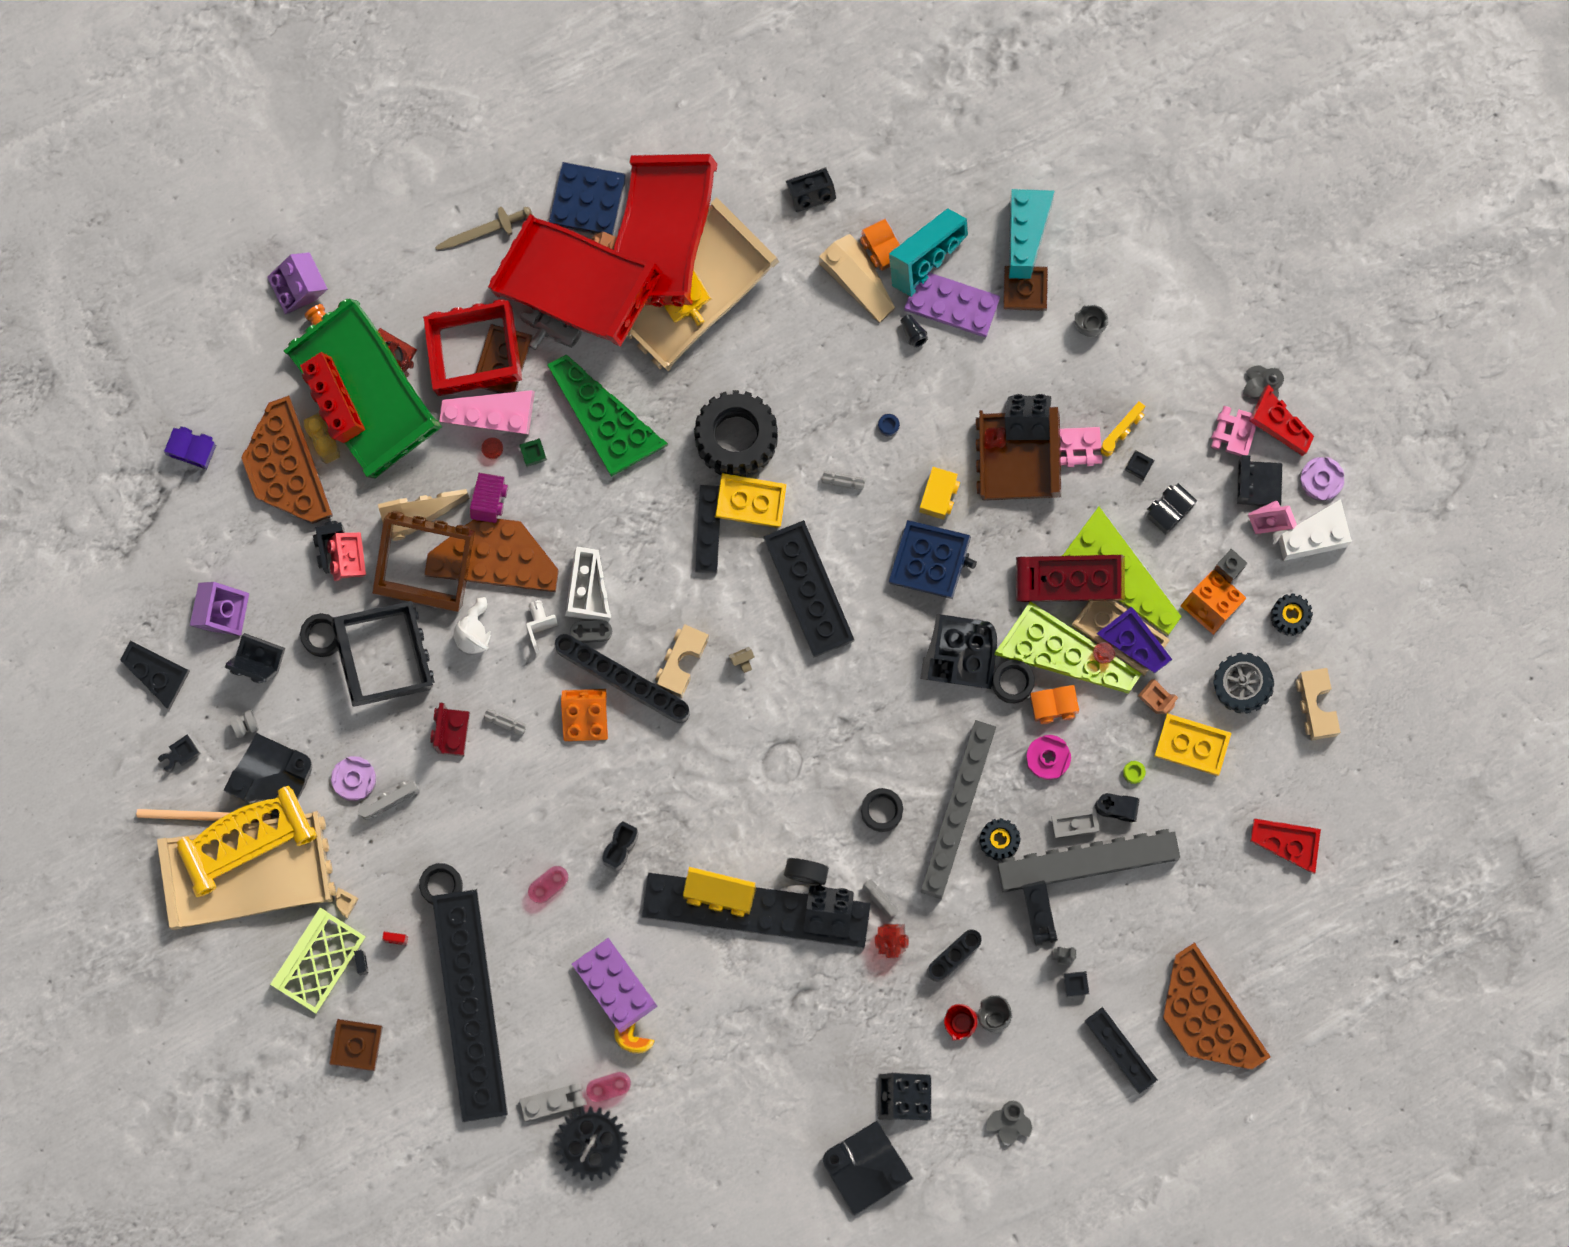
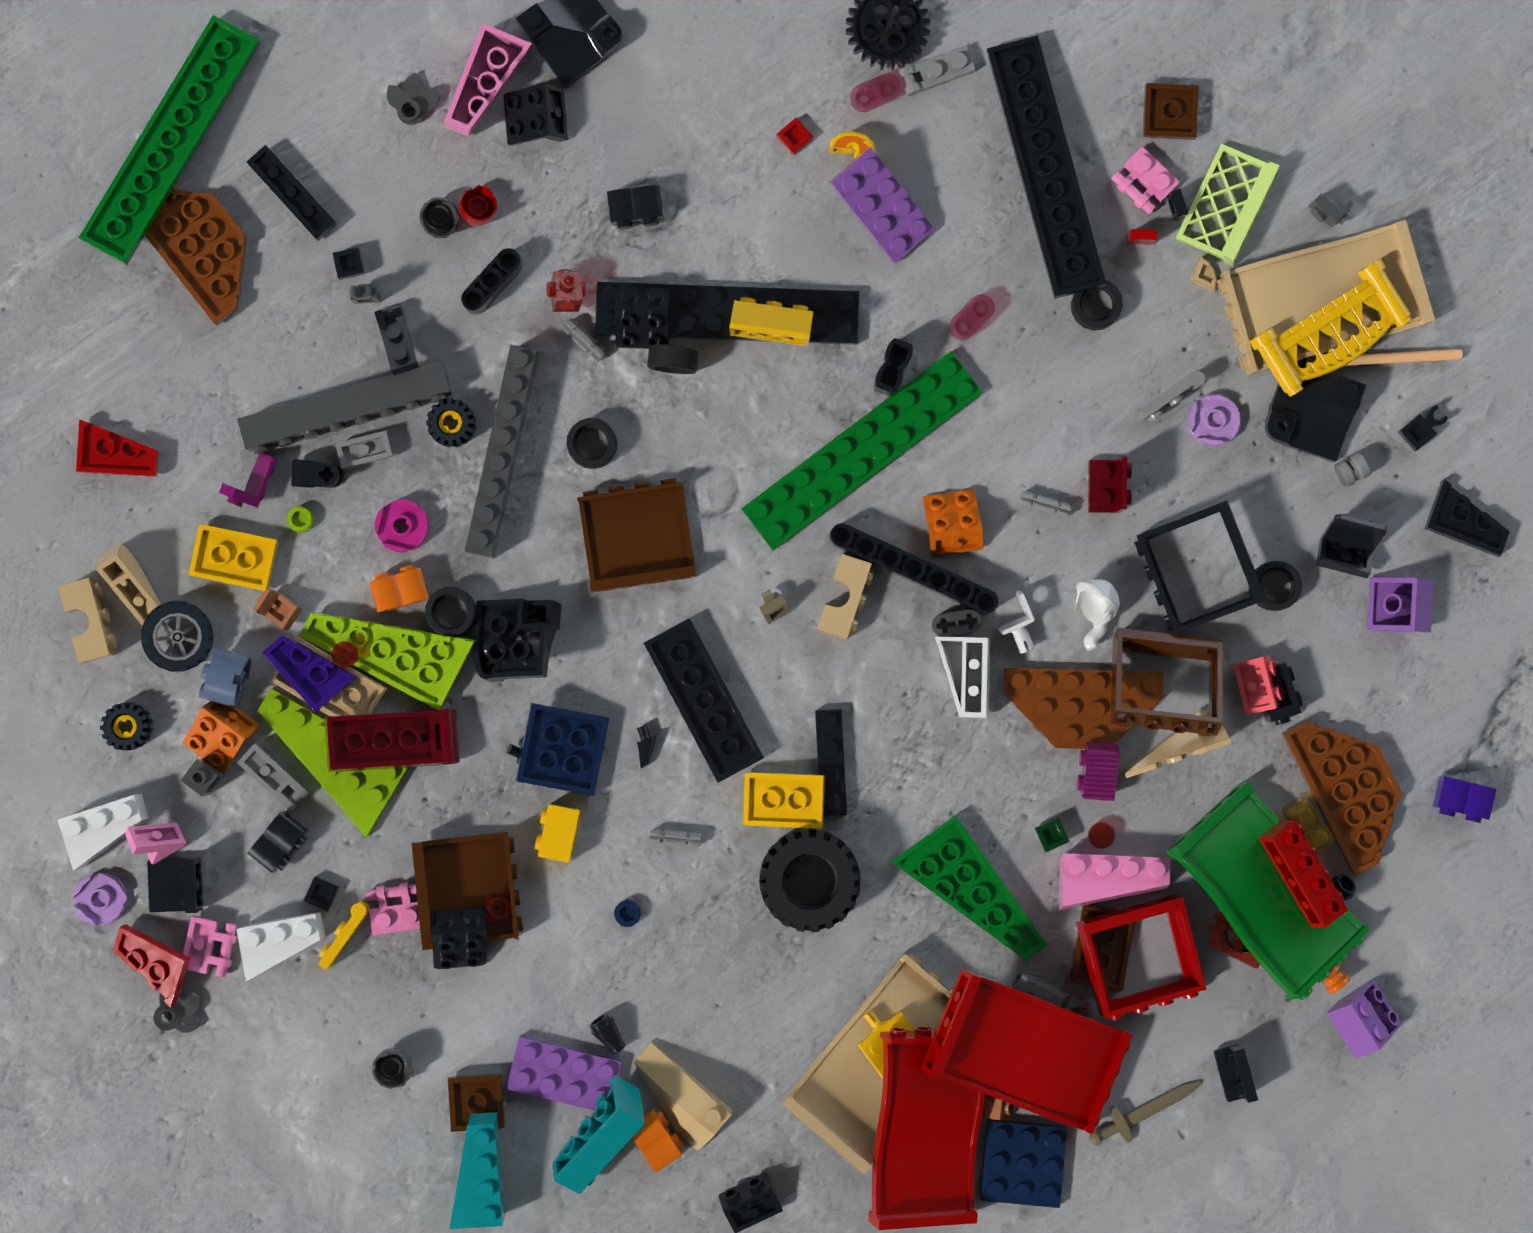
camera: 170 degrees right, 10 degrees up
(236, 944) = (1325, 211): none -> dark grey bracket
(299, 387) = (1345, 886): none -> black plate
(379, 991) = (1150, 175): none -> bright pink plate
(408, 250) = (1235, 1073): none -> black bracket
(654, 782) = (861, 451): none -> green plate
(682, 1057) = (794, 136): none -> red tile
(825, 1009) = (635, 206): none -> black brick
(851, 728) = (636, 535): none -> reddish brown panel
(861, 557) = (645, 746): none -> black bar
(943, 1135) = (486, 74): none -> bright pink wedge
(1169, 802) = (256, 484): none -> magenta bracket
(1172, 562) = (272, 776): none -> light grey plate
(1177, 430) = (276, 940): none -> white wedge
(1205, 644) = (225, 677): none -> sand blue brick
(1221, 1104) = (169, 140): none -> green plate
(1282, 733) = (127, 580): none -> tan slope

